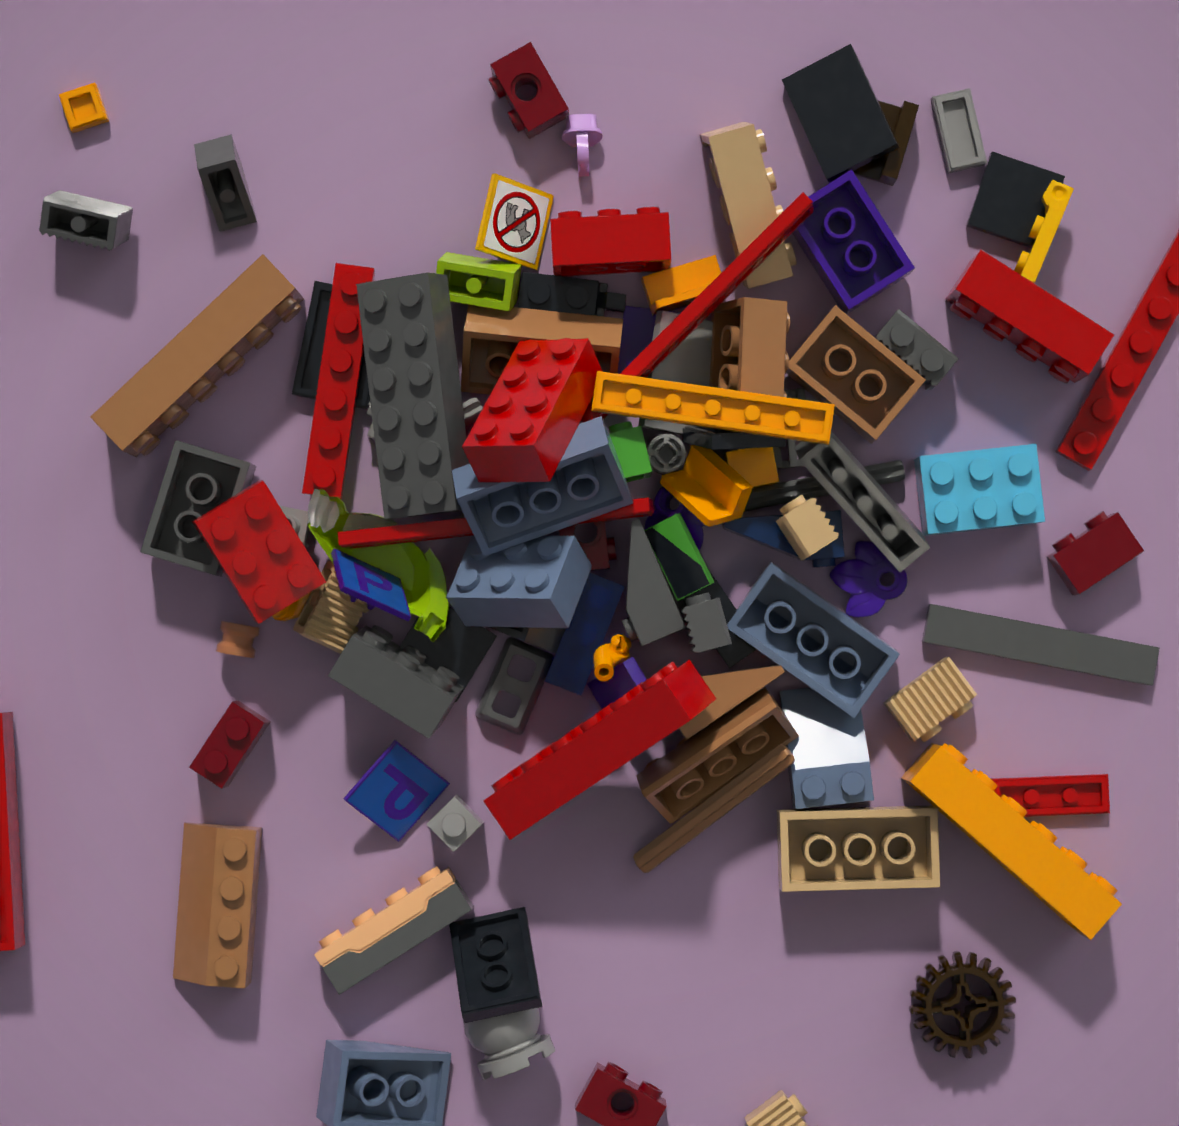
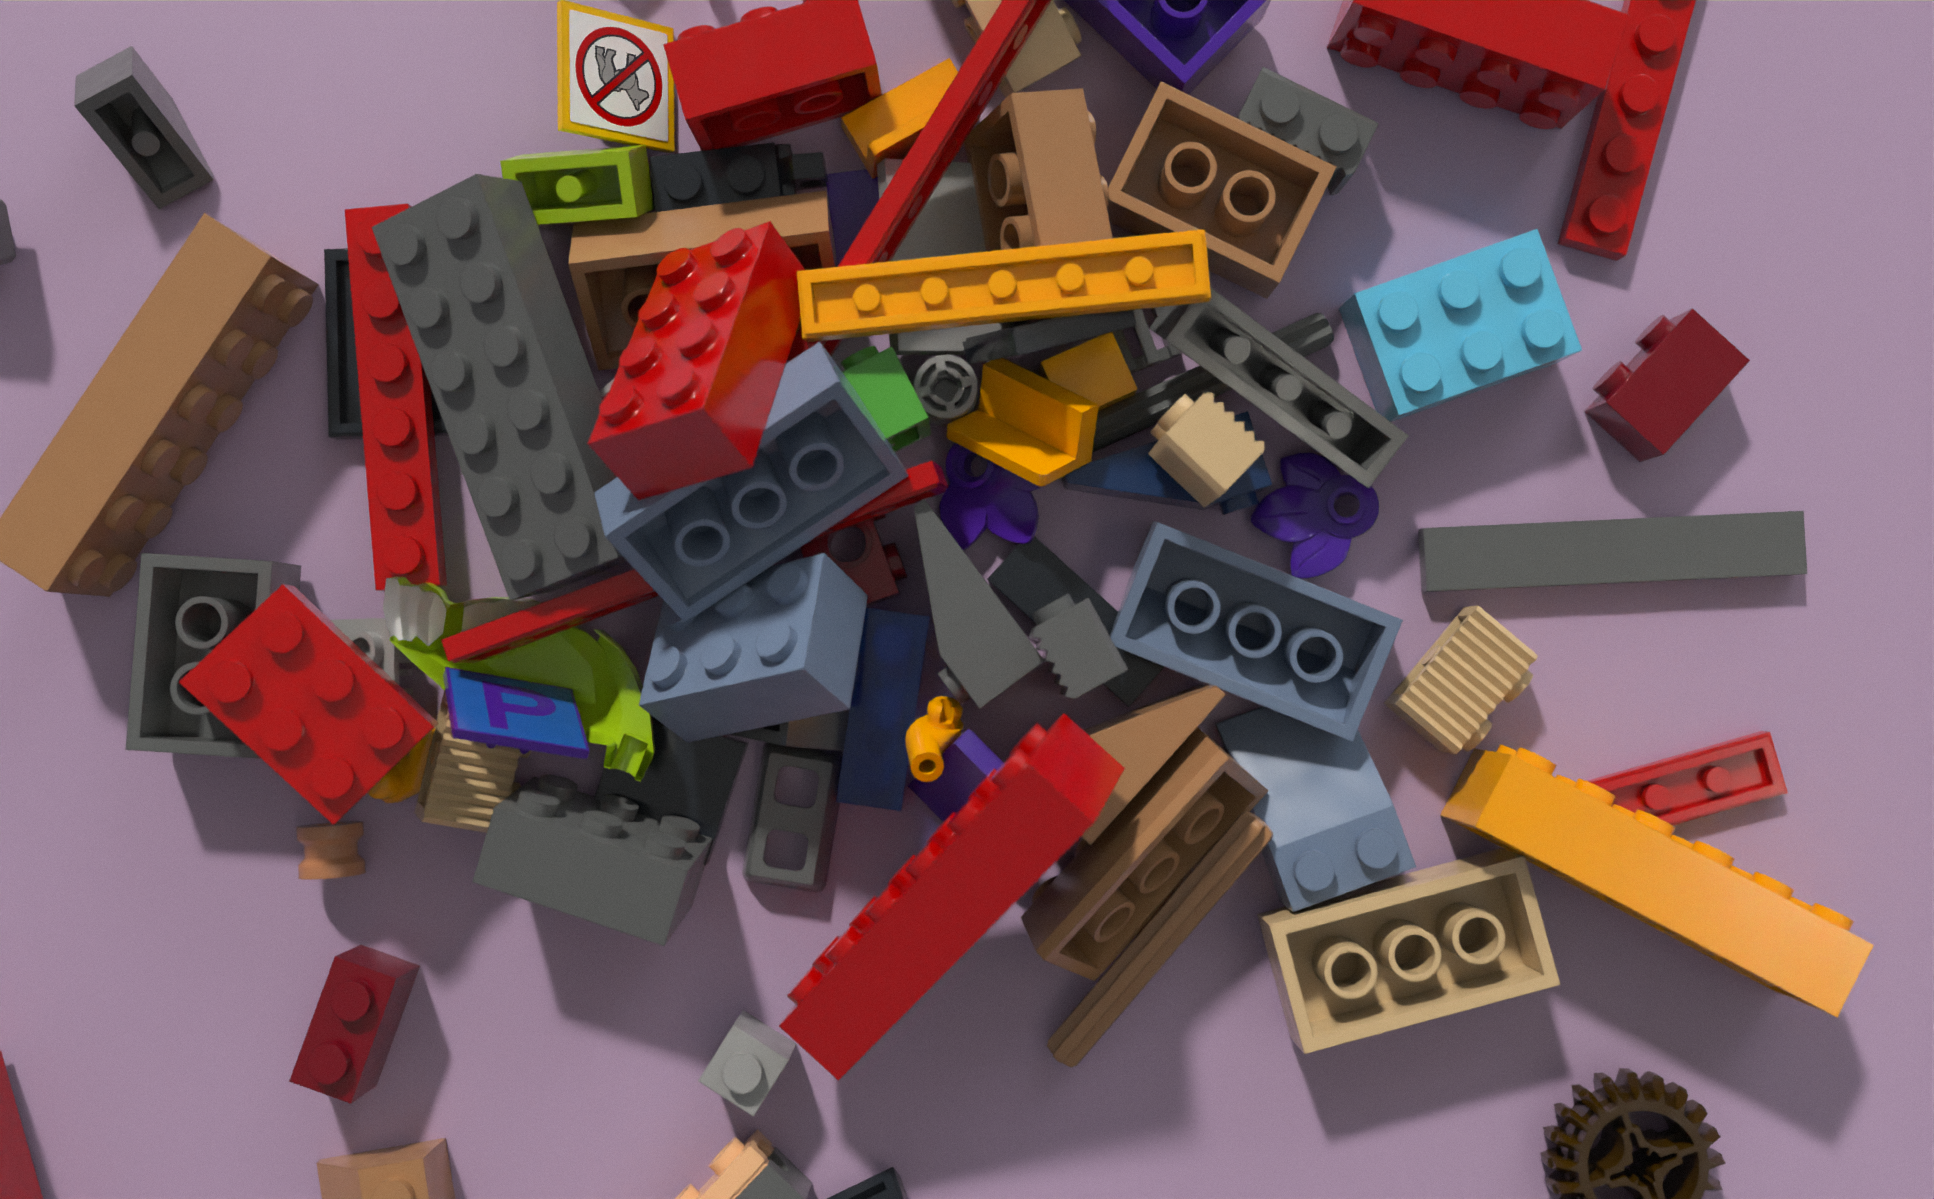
camera: 15 degrees left, 0 degrees up
(396, 790) = (641, 1032): blue piece -> none
(679, 556) = (1005, 548): black tile -> none

